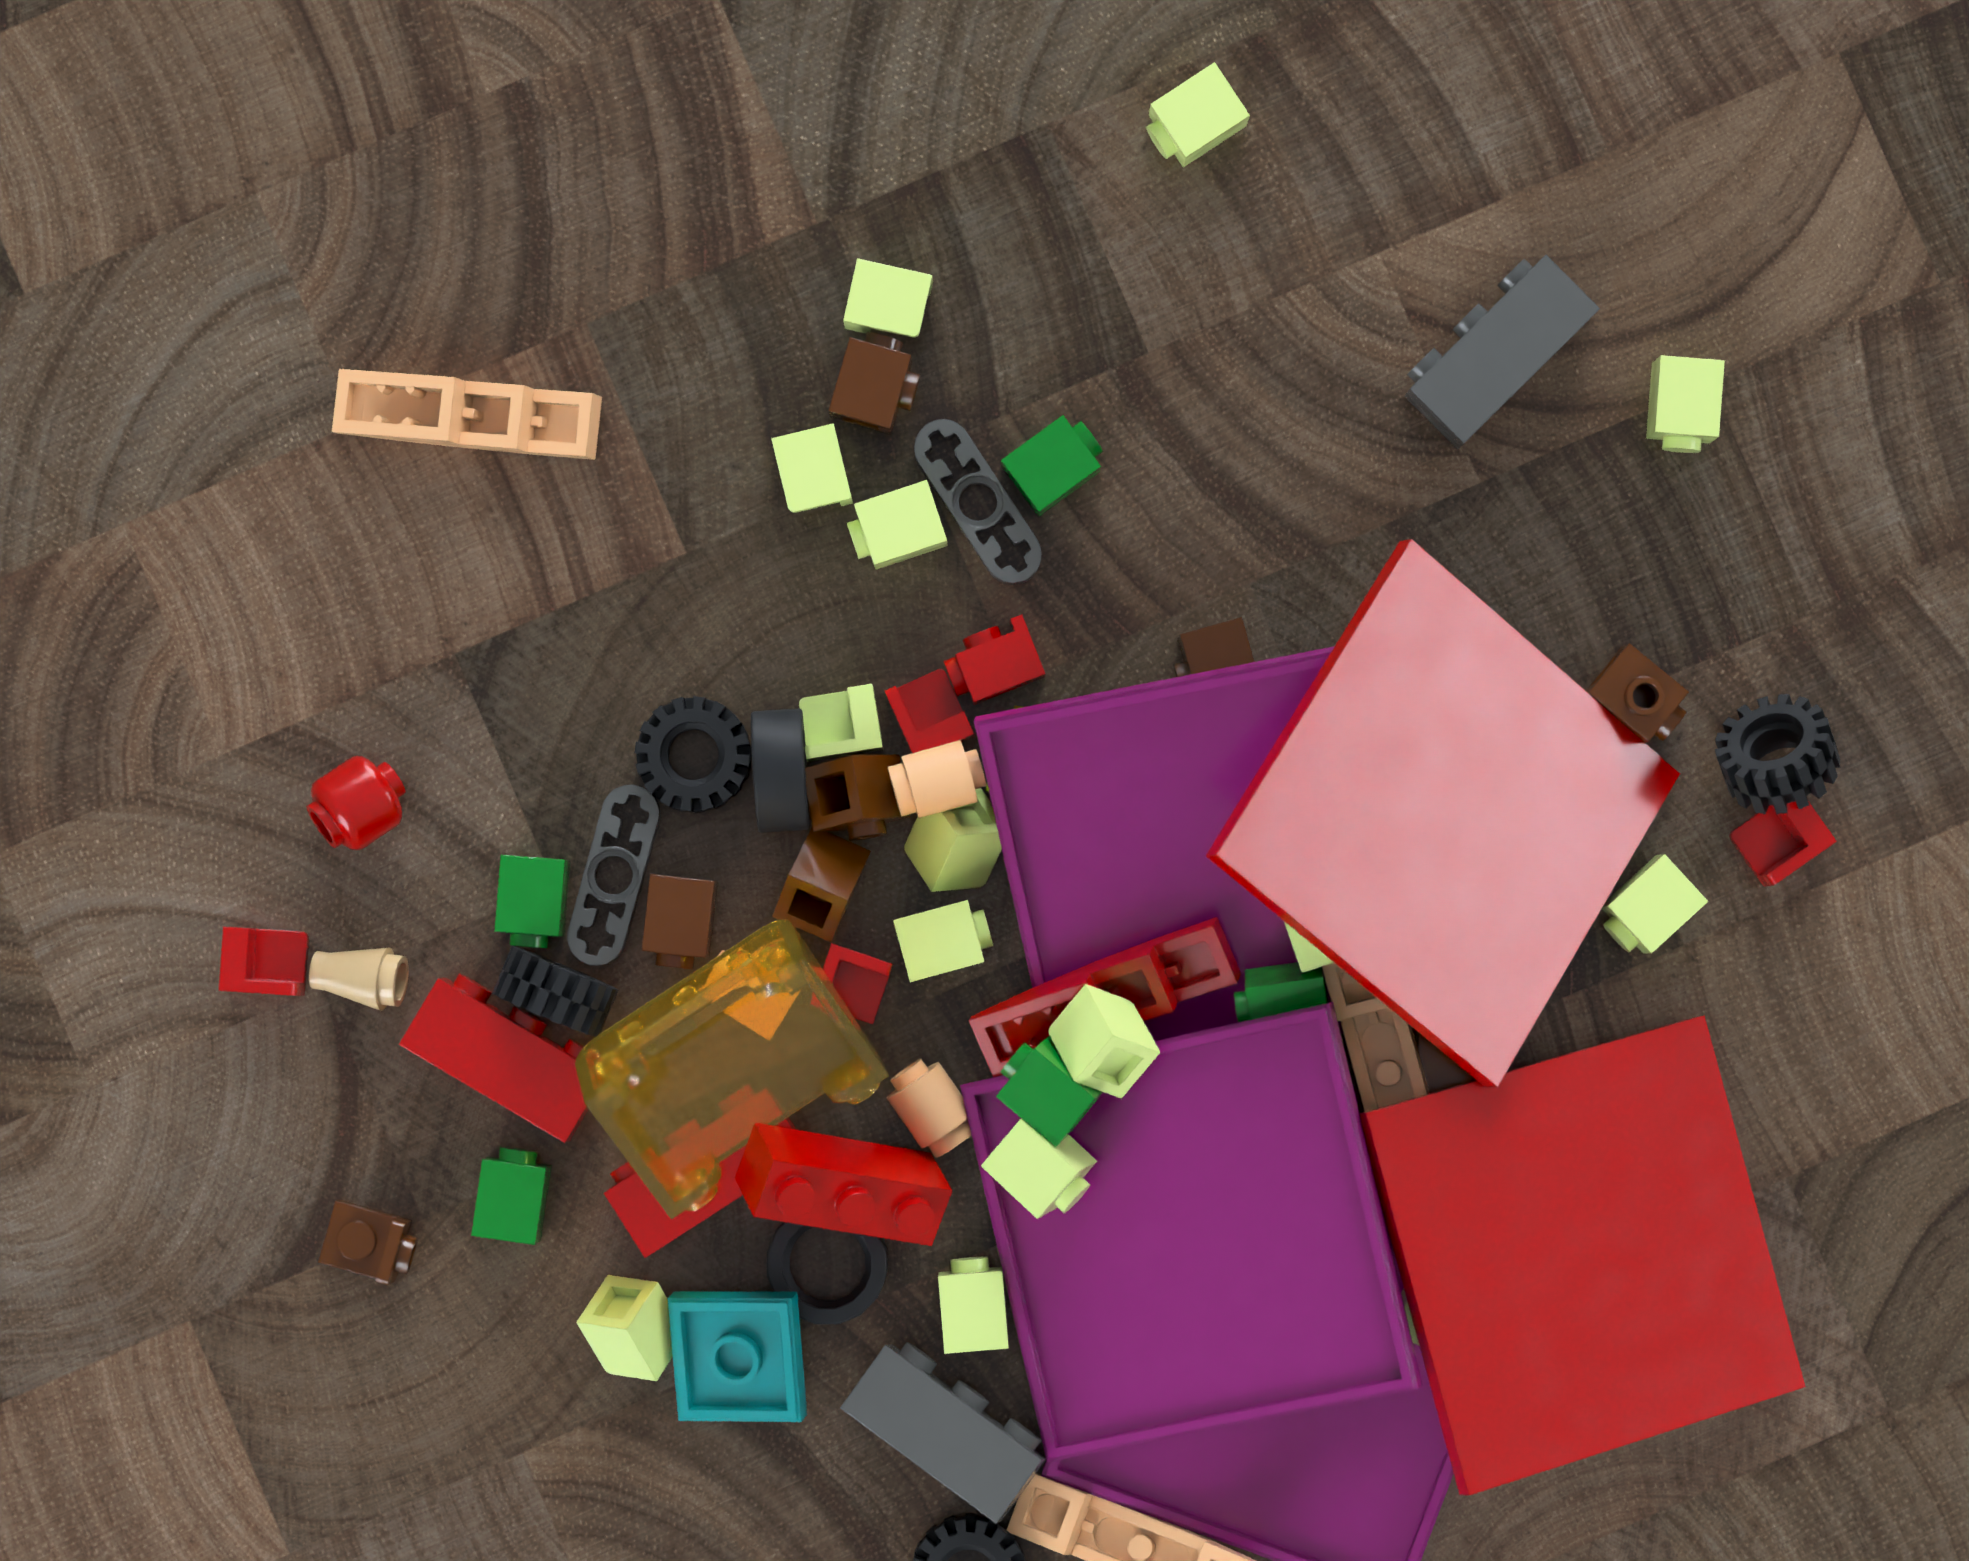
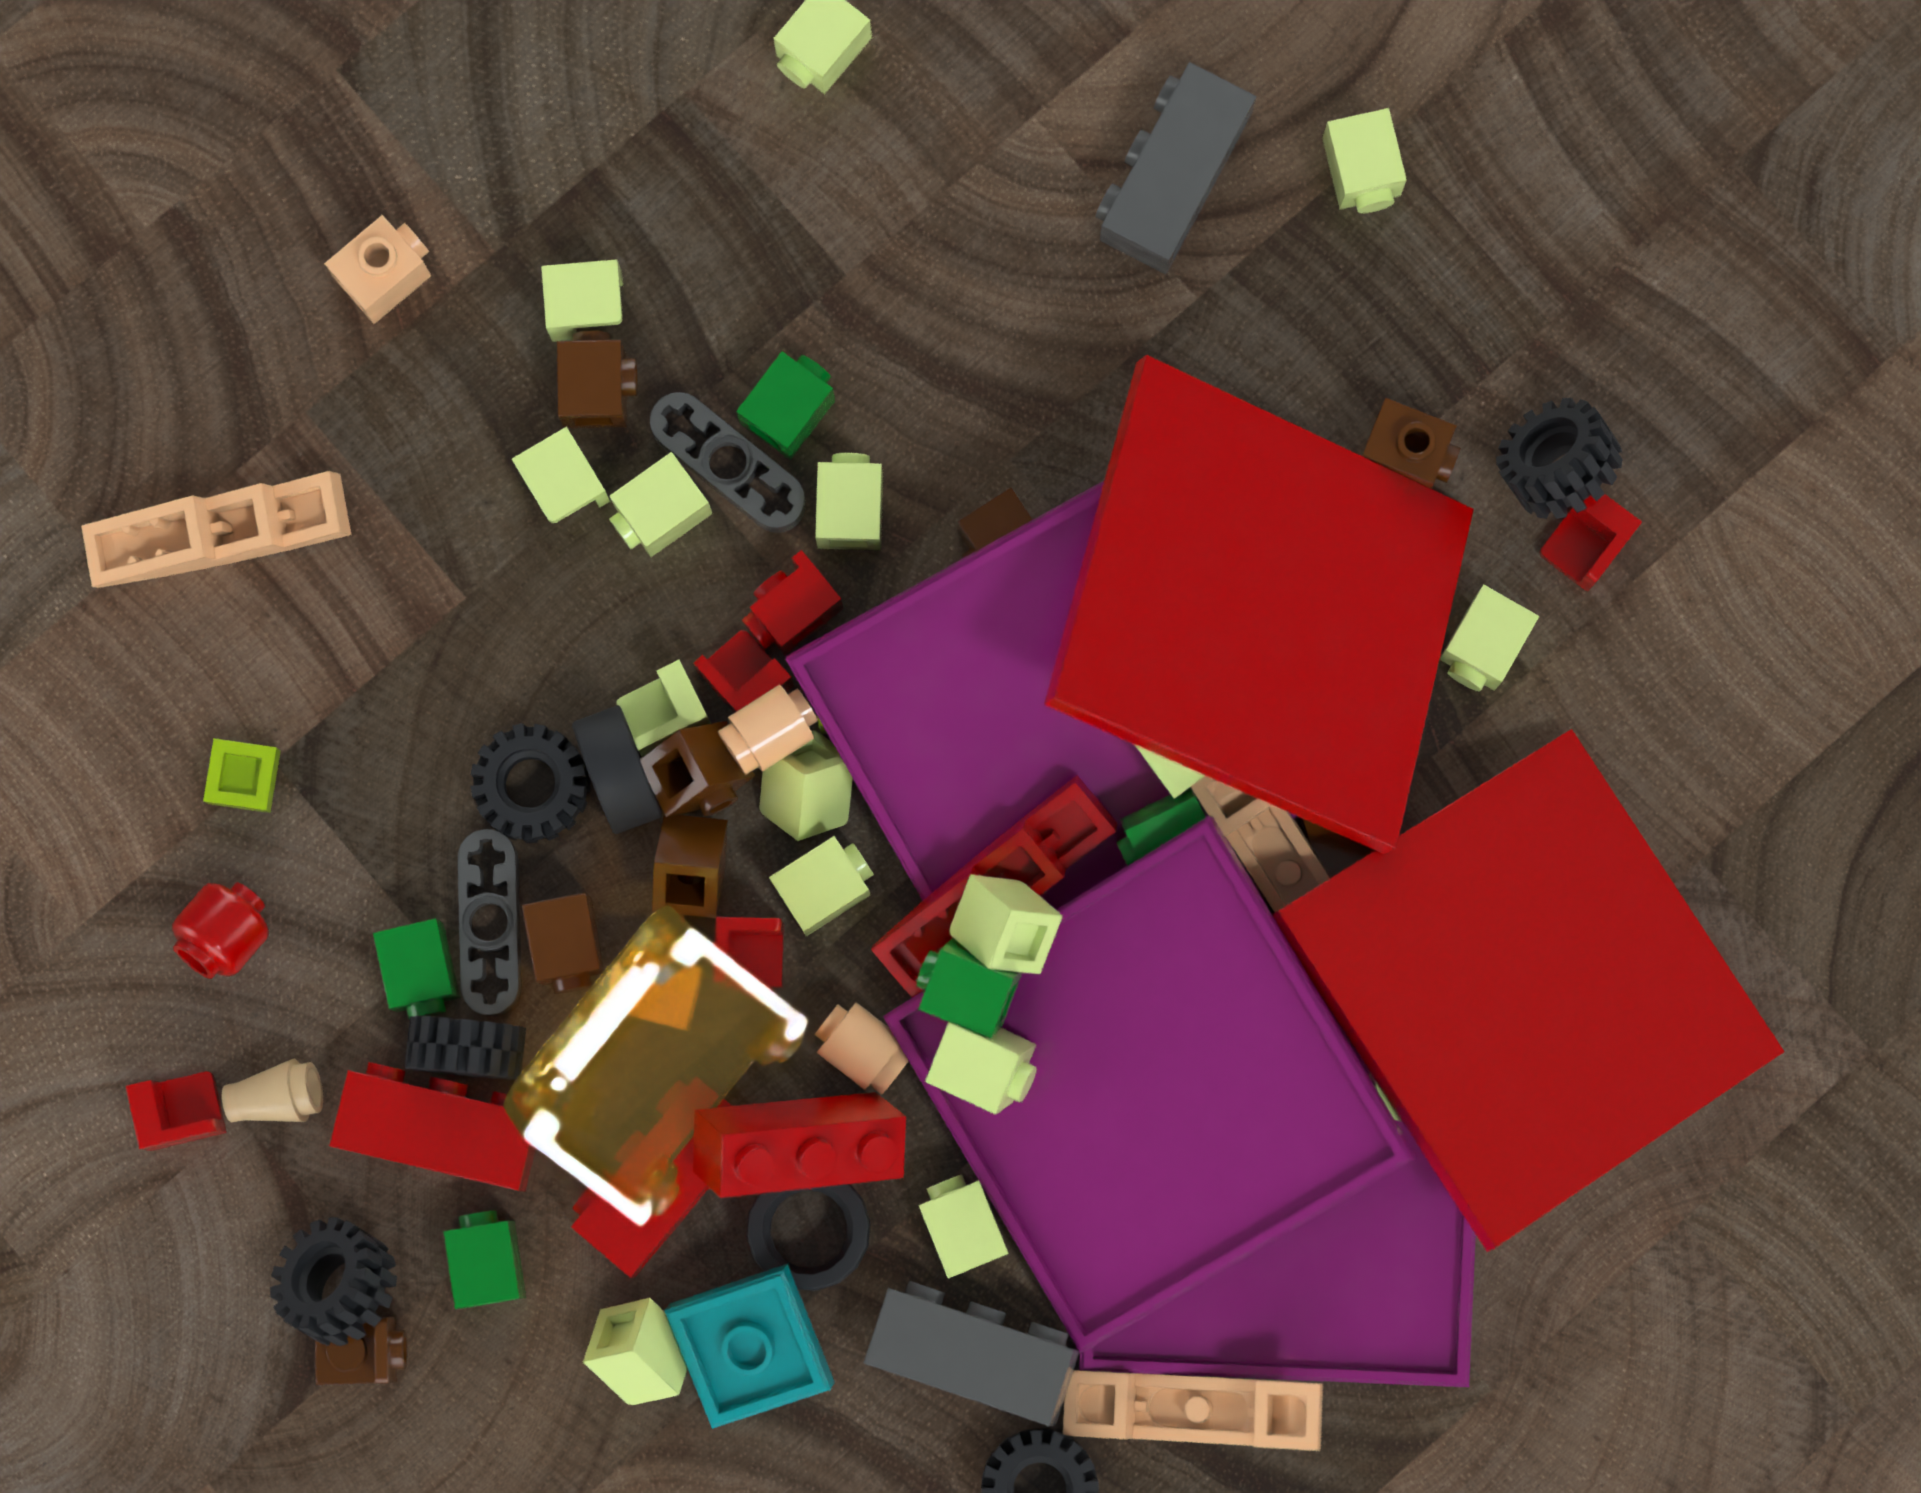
camera: 15 degrees left, 5 degrees down
(344, 1152) = (311, 1266): none -> black tyre
(420, 660) = (241, 775): none -> lime plate
(702, 207) = (380, 267): none -> light nougat brick
(1082, 579) = (849, 503): none -> yellowish green brick

